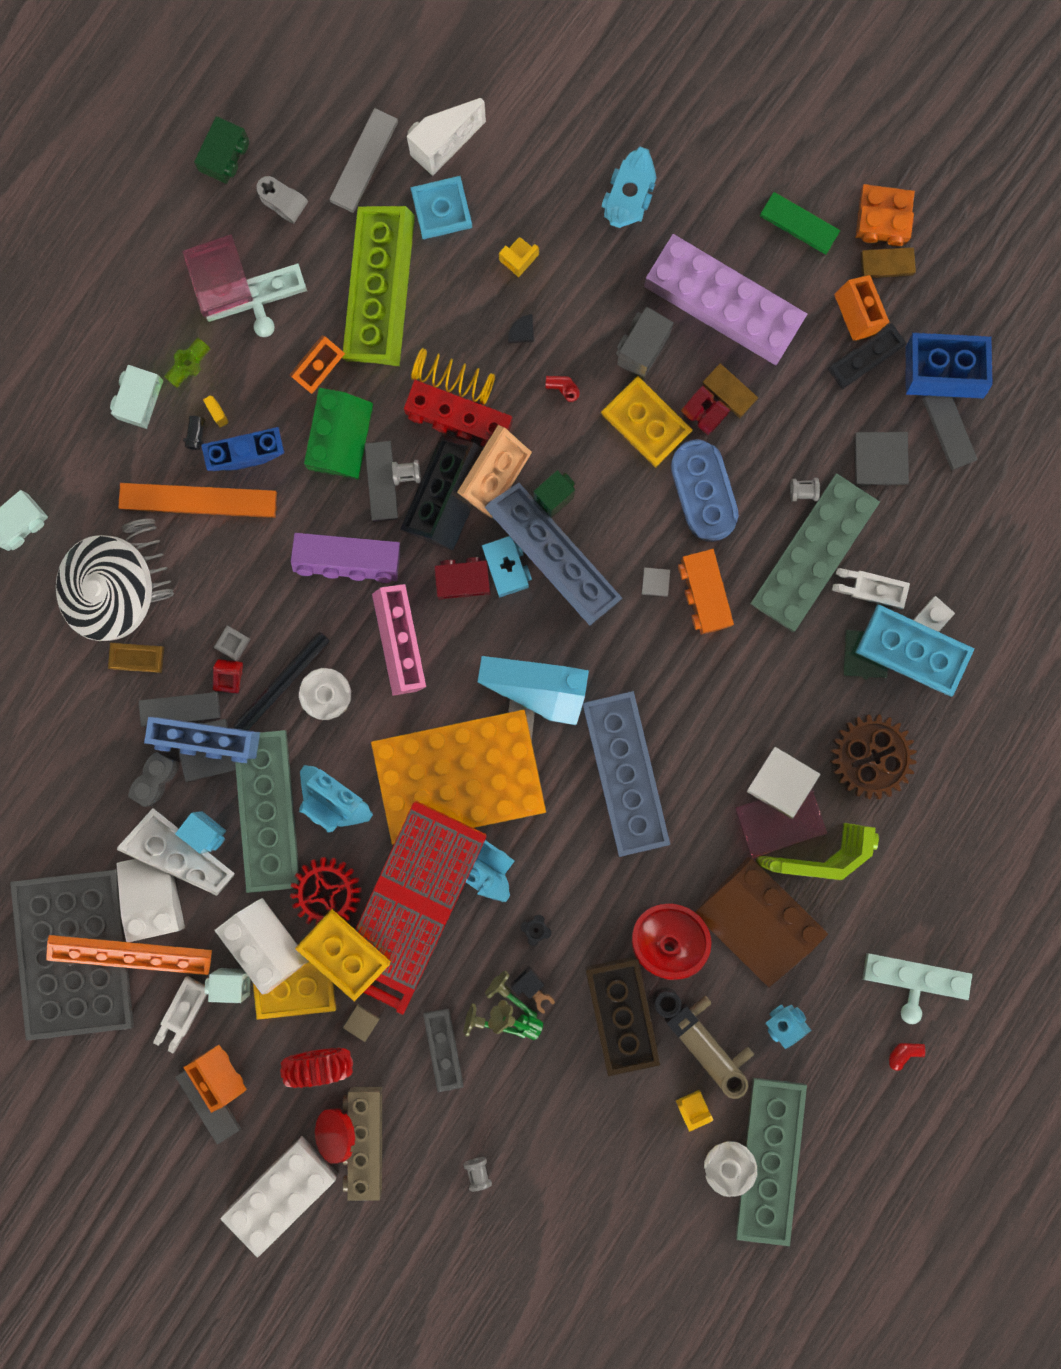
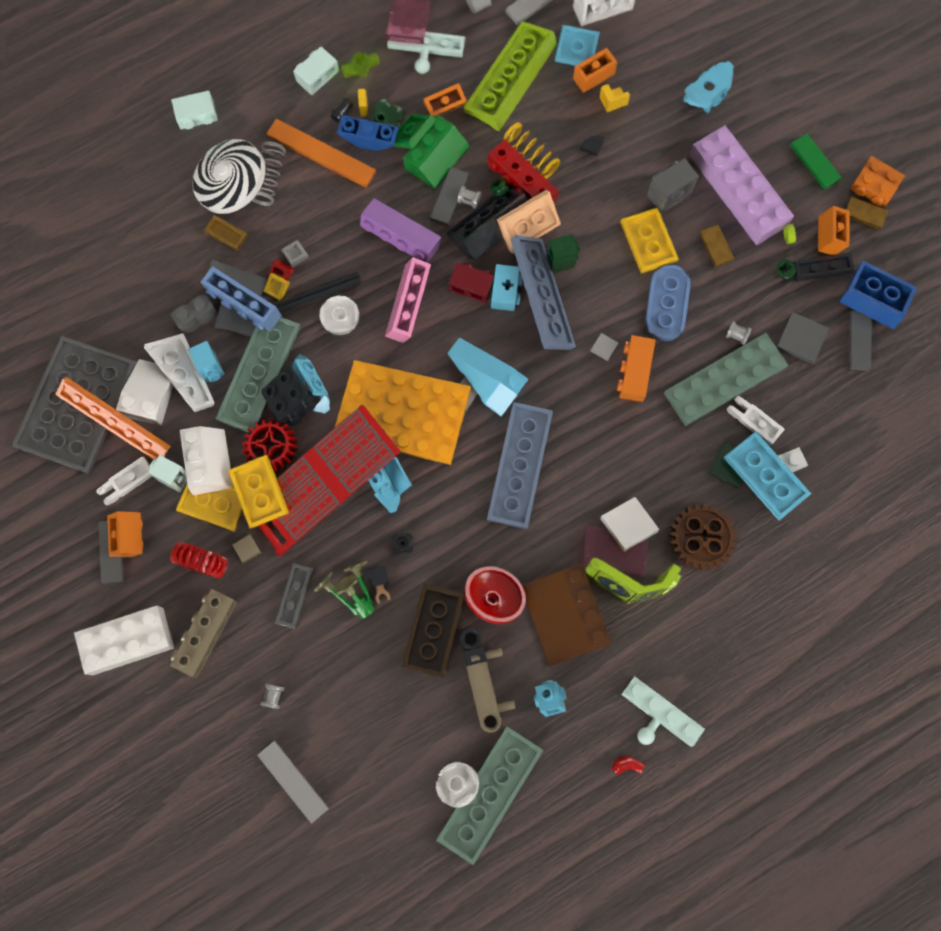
camera: 25 degrees right, 10 degrees down
(232, 696) = (276, 286): none -> yellow tile
(256, 410) = (388, 114): none -> dark green plate
(297, 420) = (413, 130): none -> green tile
(319, 827) = (289, 397): none -> black bracket
(334, 1135) = (185, 615): red tile -> none
(436, 441) = (499, 187): none -> dark green bush
(480, 233) = (595, 70): none -> orange brick
(548, 1253) = (293, 782): none -> light grey tile
(565, 385) = (604, 191): red arm -> none
(694, 1110) = (452, 727): yellow panel -> none
(714, 413) = (694, 251): dark red wheel -> none
(810, 334) = (789, 233): none -> lime tile
(818, 378) = (790, 273): none -> dark green bush

